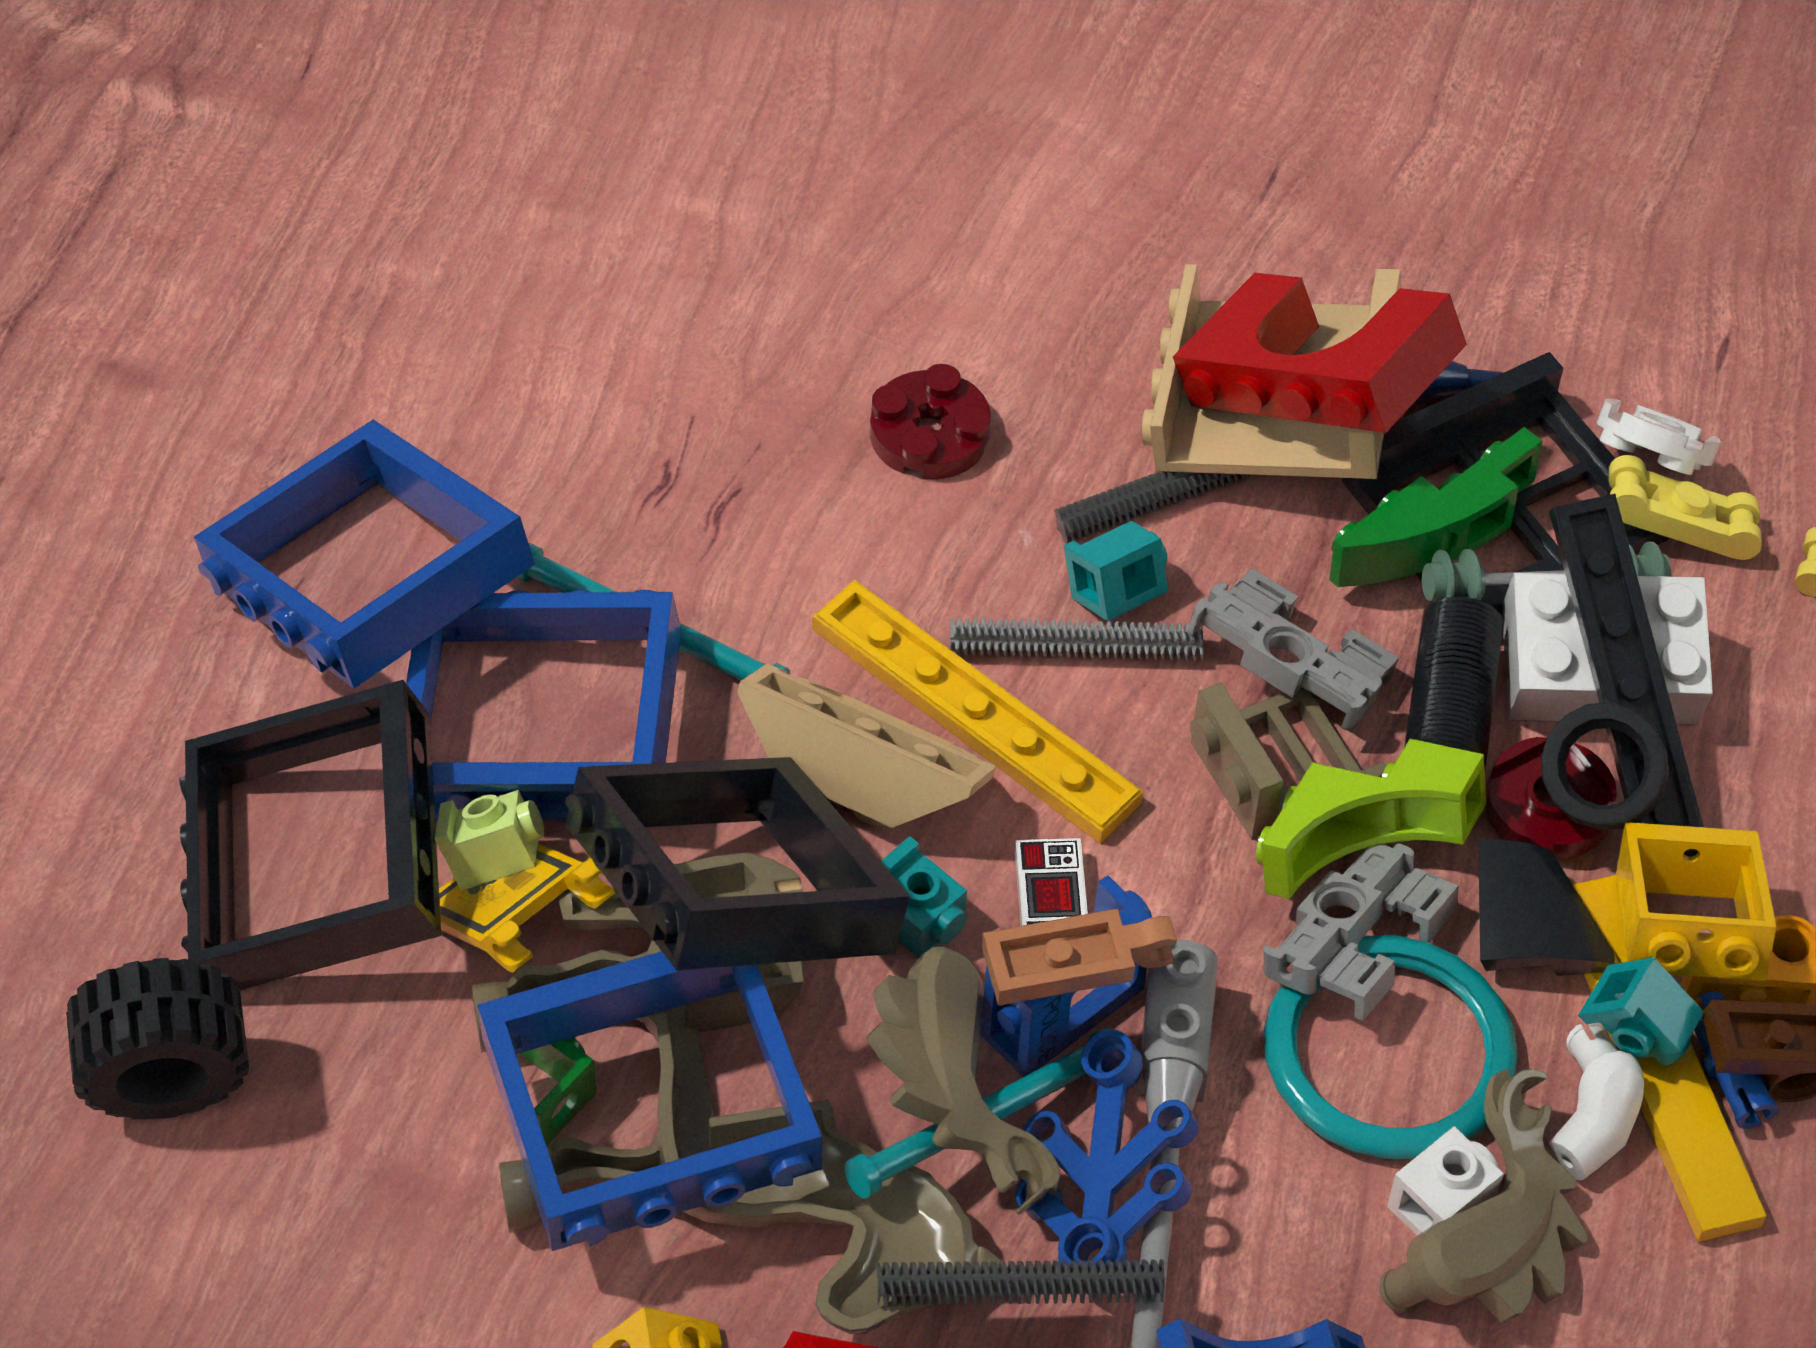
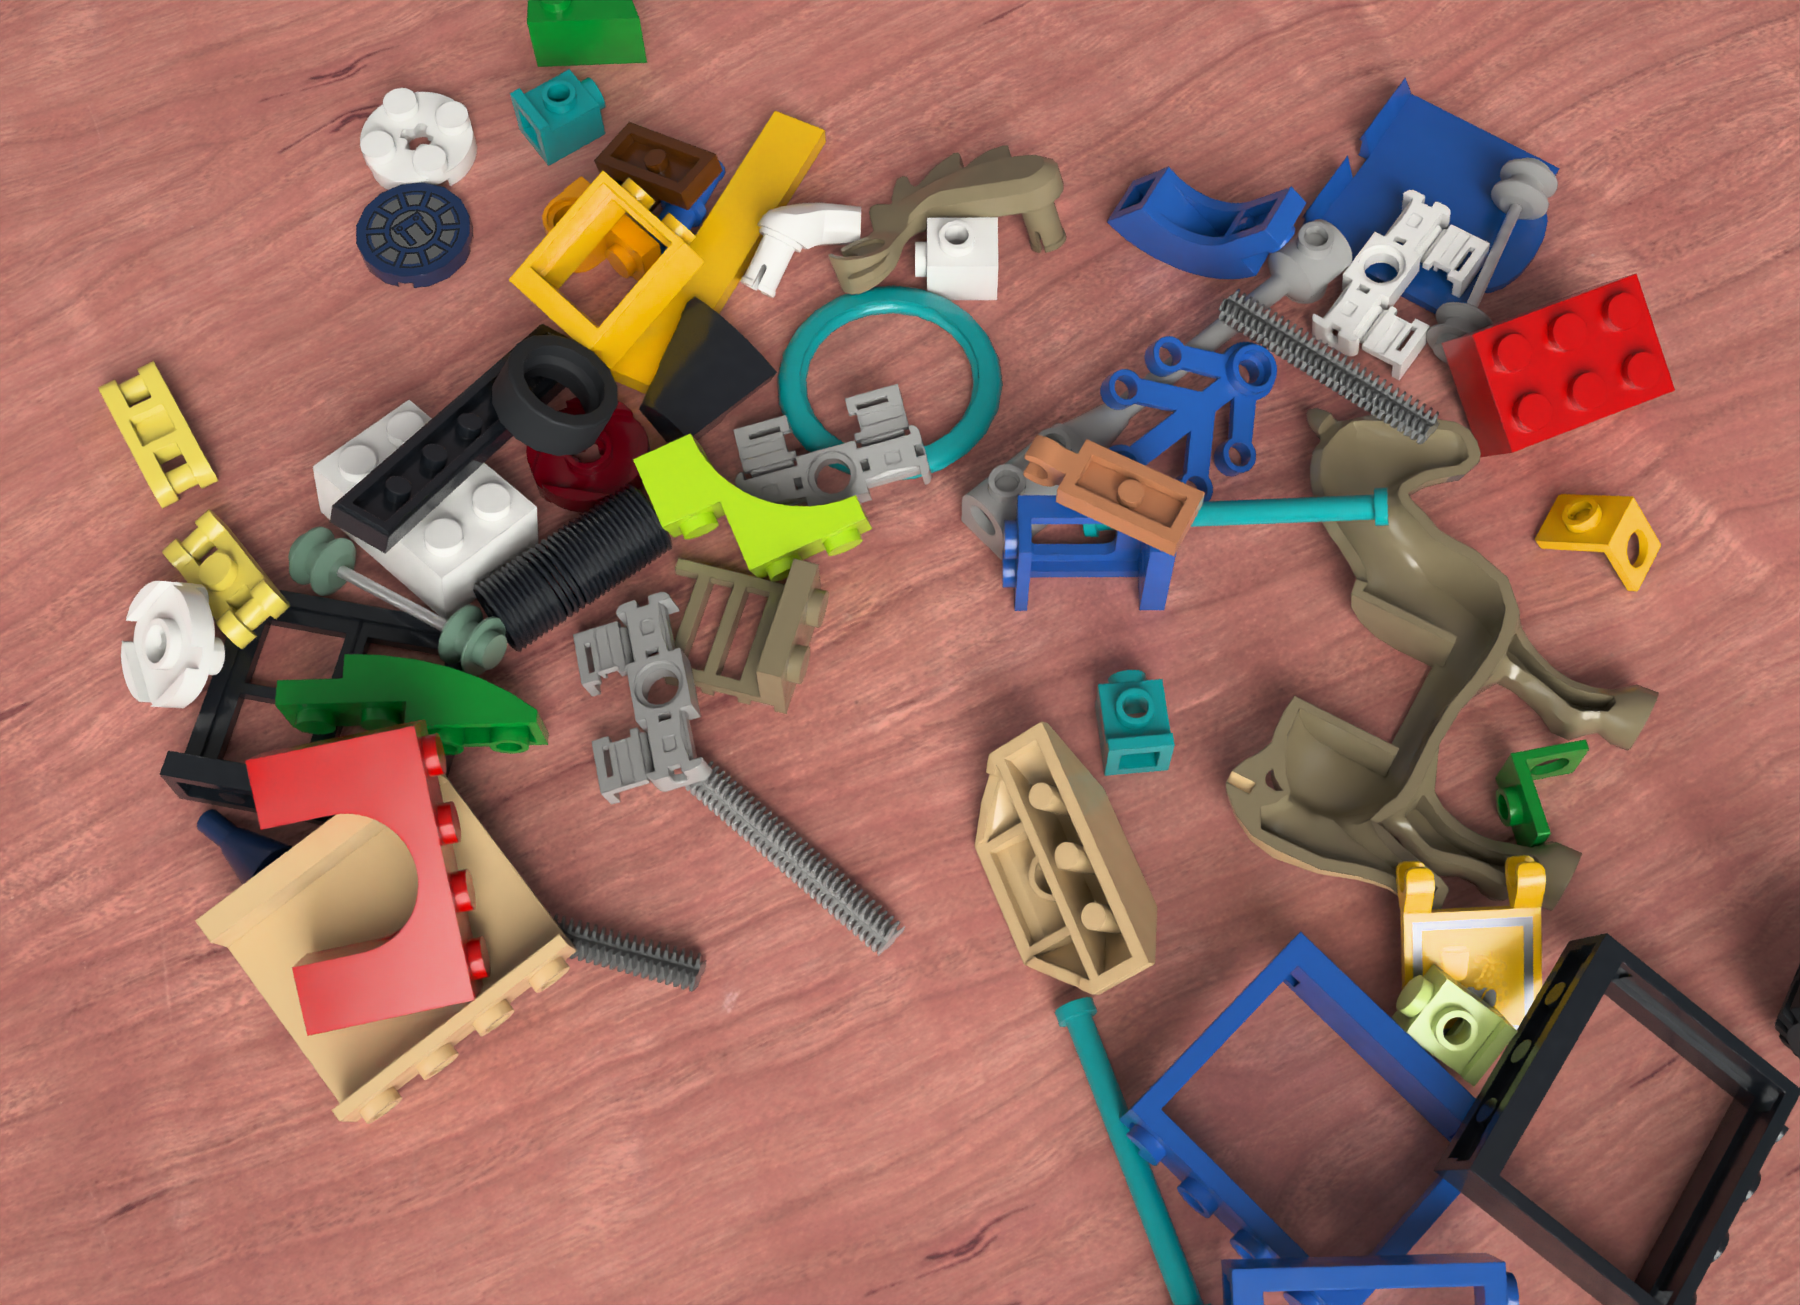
camera: 135 degrees left, 10 degrees up
(660, 1192) = (1475, 762): blue window -> none
(850, 914) = (1197, 762): black window -> none
(933, 1047) = (1243, 559): dark tan animal -> none
(937, 395) = (727, 1210): dark red plate -> none
(978, 711) = (931, 872): yellow tile -> none
(1050, 879) = (1022, 658): tile -> none
(1117, 570) = (706, 875): teal brick -> none
(1643, 1010) = (728, 236): teal brick -> none

